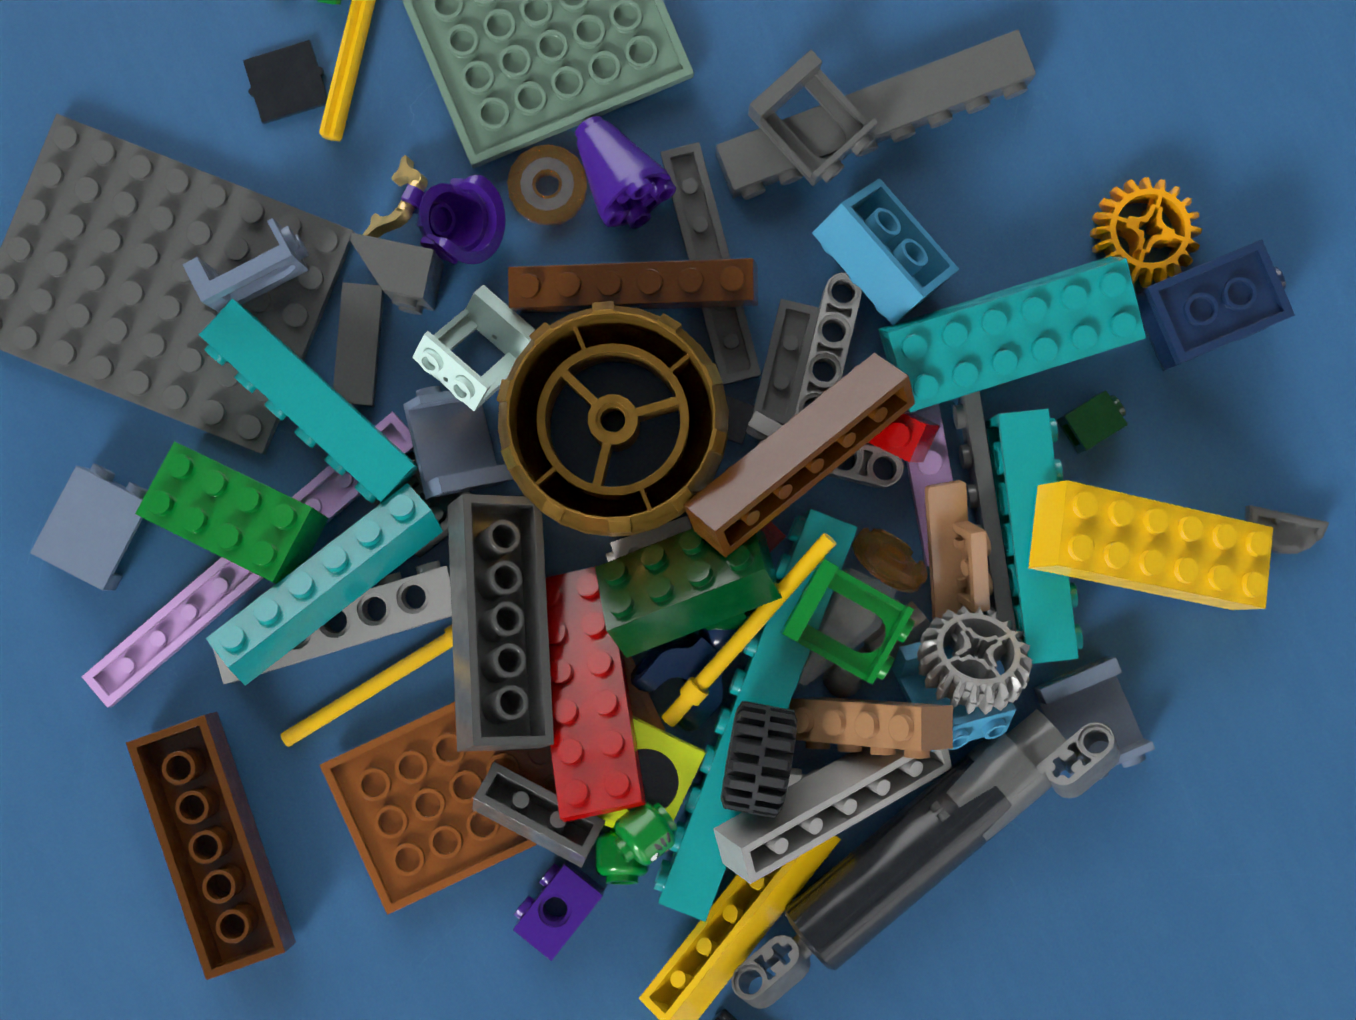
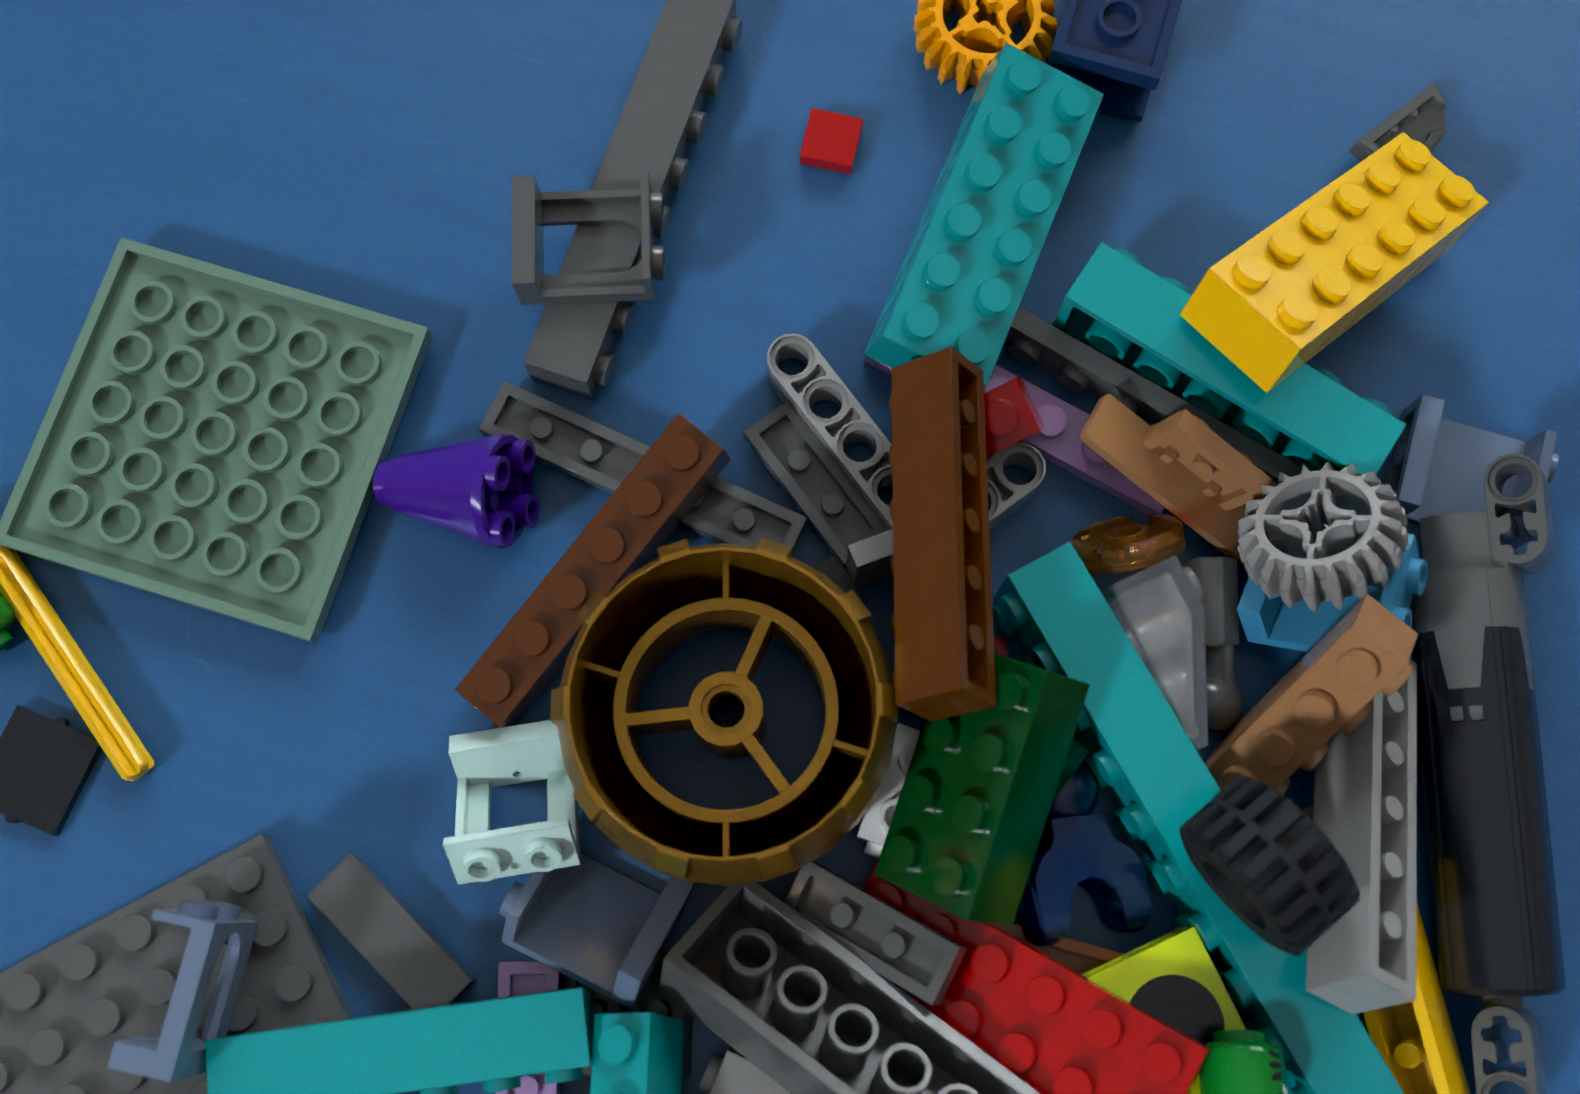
camera: 50 degrees left, 10 degrees down
(403, 271) = (353, 810): dark grey slope -> none
(456, 219) = (349, 709): dark purple helmet -> none
(541, 162) = (383, 555): clear orange tile -> none
(567, 592) = (877, 932): none -> dark grey plate
(696, 689) = (1108, 875): yellow bar -> none
(885, 251) = (788, 282): dark azure brick -> none
(891, 612) = (1211, 580): green panel -> none
(998, 202) = (831, 141): none -> red tile
(1093, 421) = (1143, 221): dark green brick -> none

